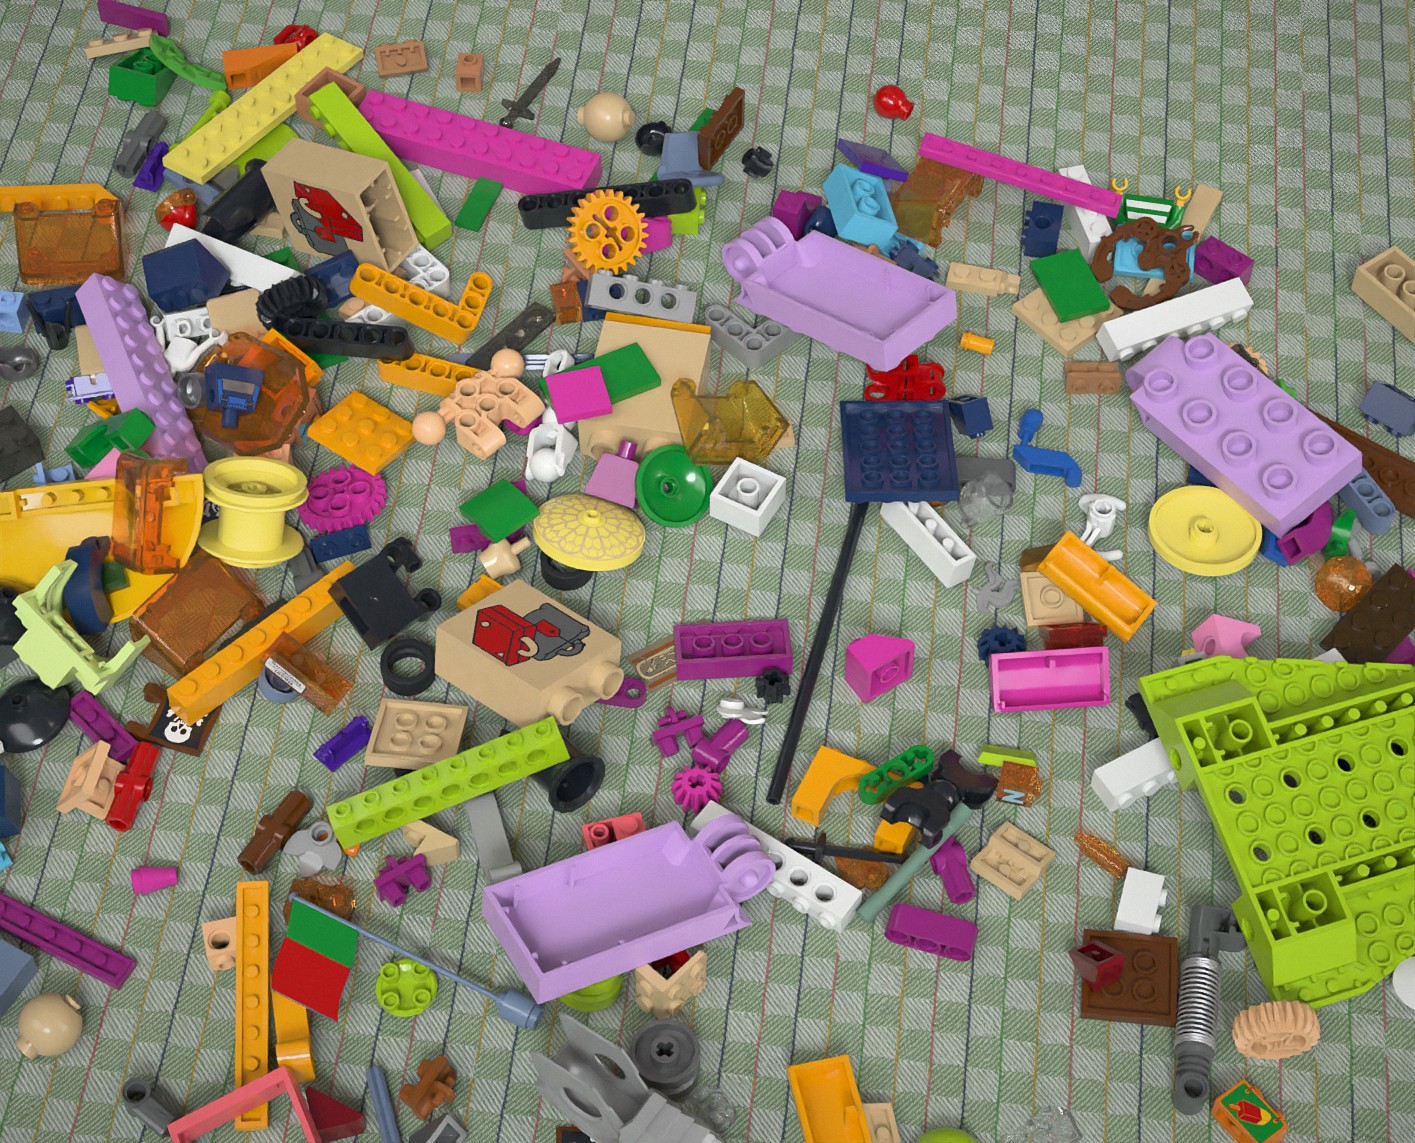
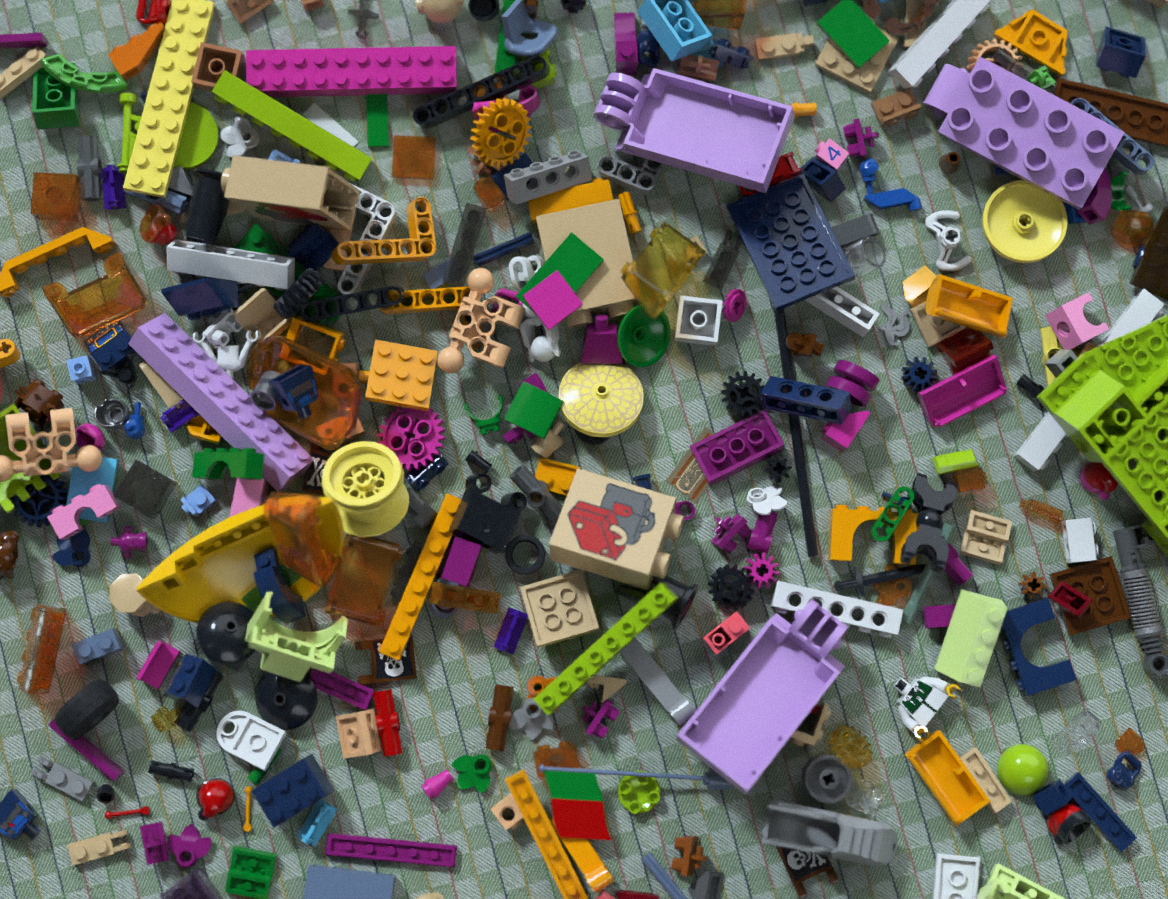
camera: 25 degrees left, 30 degrees up
(34, 383) = (135, 426): none -> blue piece
(86, 153) = (56, 196): none -> clear orange brick
(204, 886) = (470, 774): none -> green plate
(329, 633) = (462, 562): none -> magenta piece
(439, 519) = (490, 424): none -> green helmet
(452, 587) = (530, 486): none -> dark grey piece
(500, 248) = (414, 157): none -> clear orange tile
(647, 789) = (725, 595): none -> black gear
(716, 1030) = (851, 747): none -> clear yellow gear
(720, 373) = (629, 213): none -> light orange axle
(768, 593) = (734, 388): none -> black gear
(808, 489) = (734, 305): none -> dark pink gear
(809, 455) = (722, 262): none -> clear smoke hinge
(840, 609) = (806, 400): none -> dark blue brick
(841, 1016) = (921, 701): none -> white torso
(868, 565) = (803, 345): none -> reddish brown hips
(910, 616) = (854, 380): none -> magenta wheel
(939, 955) = (971, 637): none -> yellowish green slope
(995, 390) = (831, 154): none -> bright pink brick
(1009, 1046) = (1031, 677): none -> dark blue arch
(1035, 387) = (855, 130): none -> magenta hips
(1051, 942) = (1027, 589): none -> dark orange gear
(1136, 445) = (948, 166): none -> reddish brown cone
(1195, 841) = (1097, 479): none -> red piece
(1296, 363) = (1037, 39): none -> light orange wing

